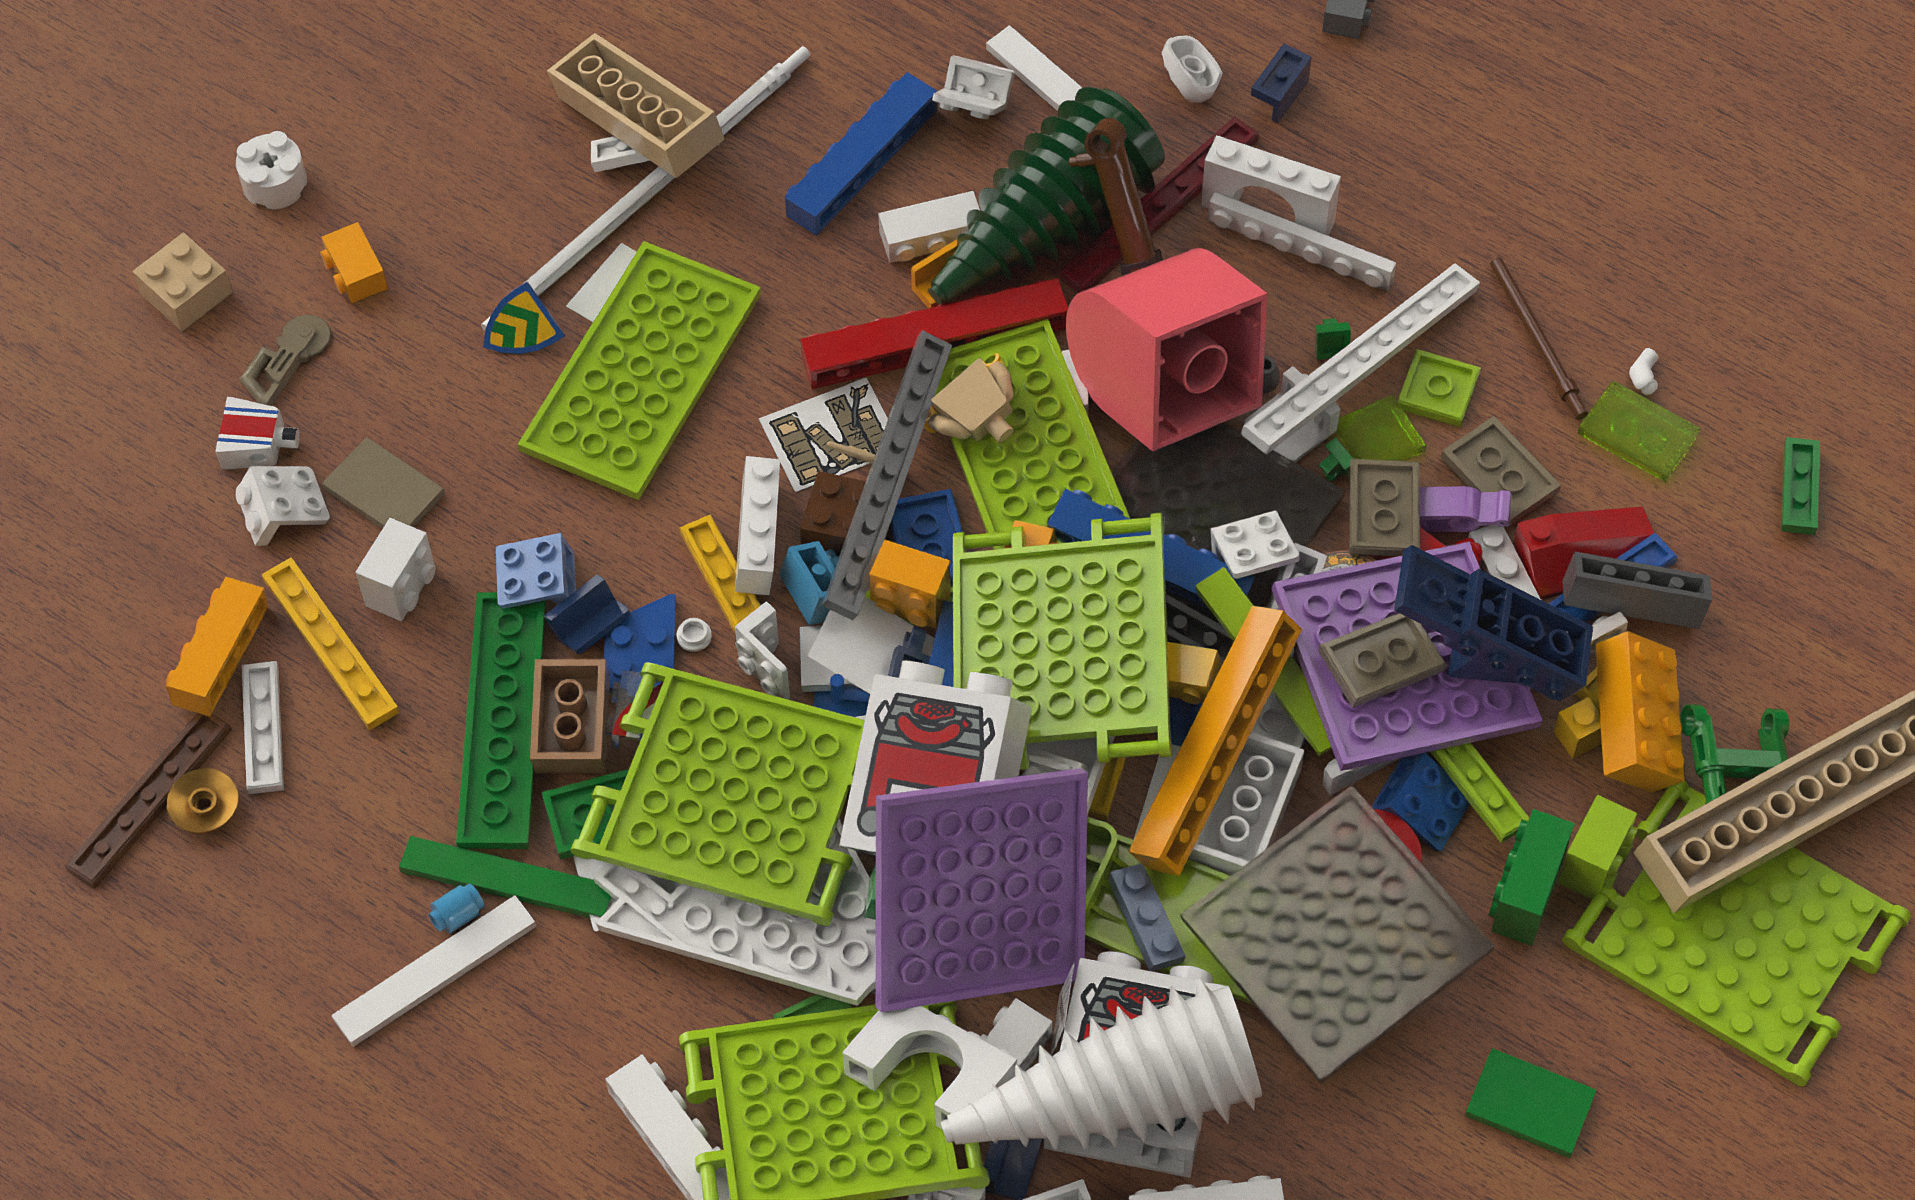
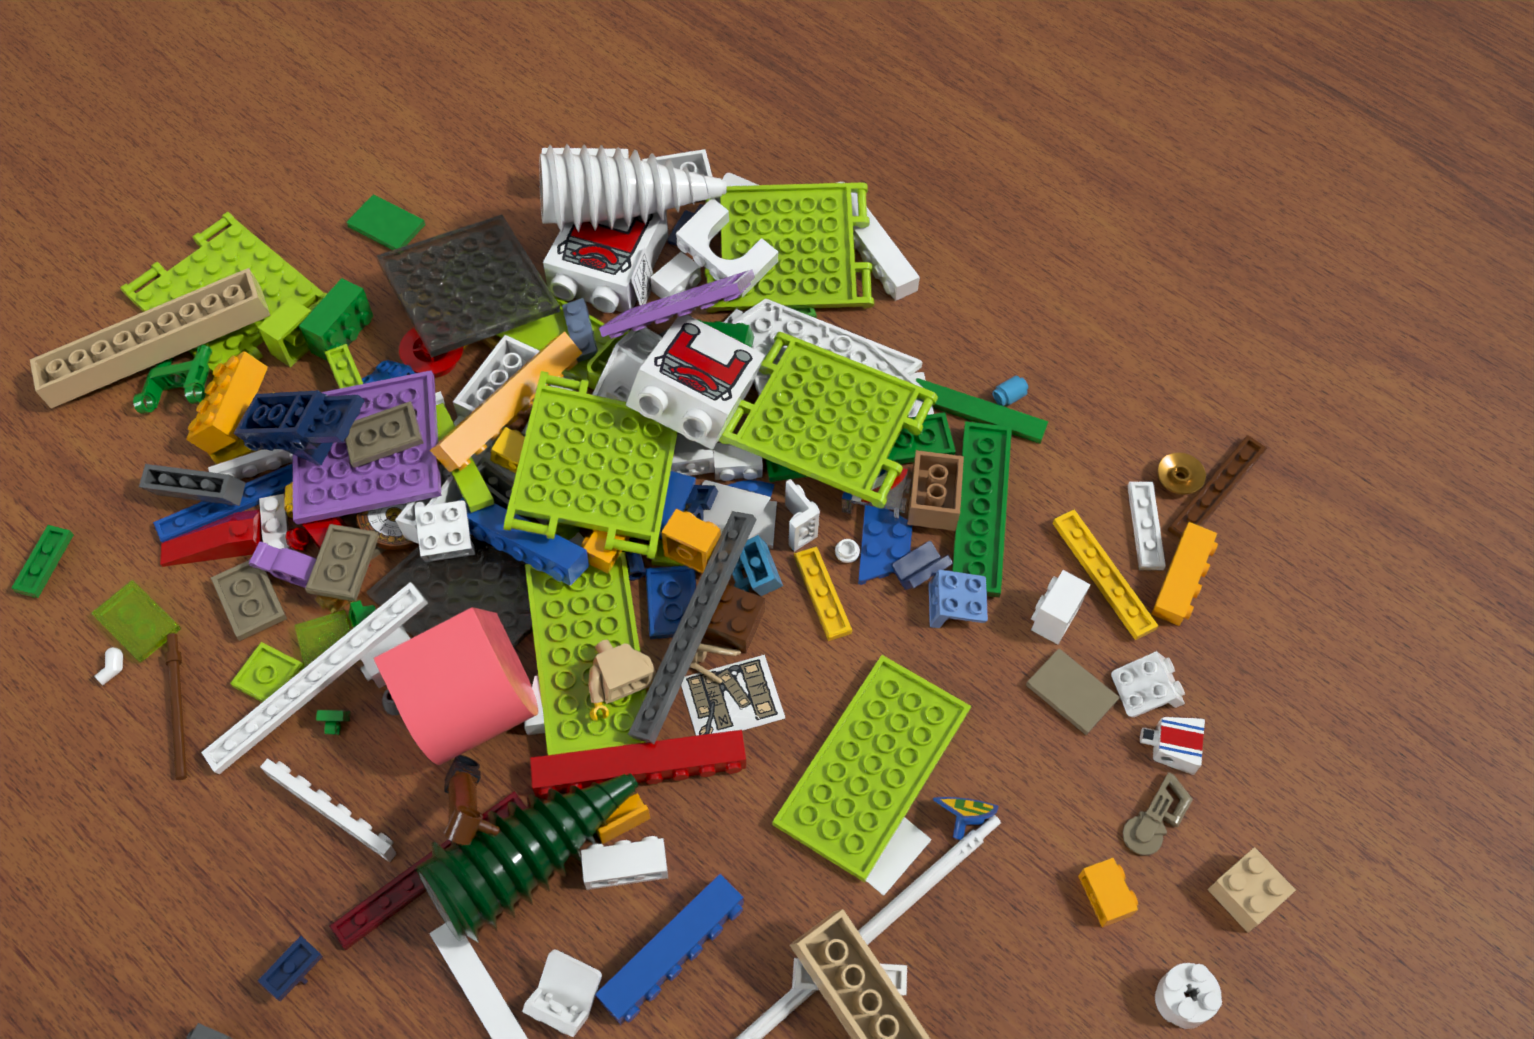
camera: 175 degrees left, 0 degrees up
(433, 971) = (1023, 362): white tile -> none
(757, 525) = (795, 613): white brick -> none
(1191, 68) = (365, 997): white piece -> none
(1307, 189) = (319, 829): white arch -> none

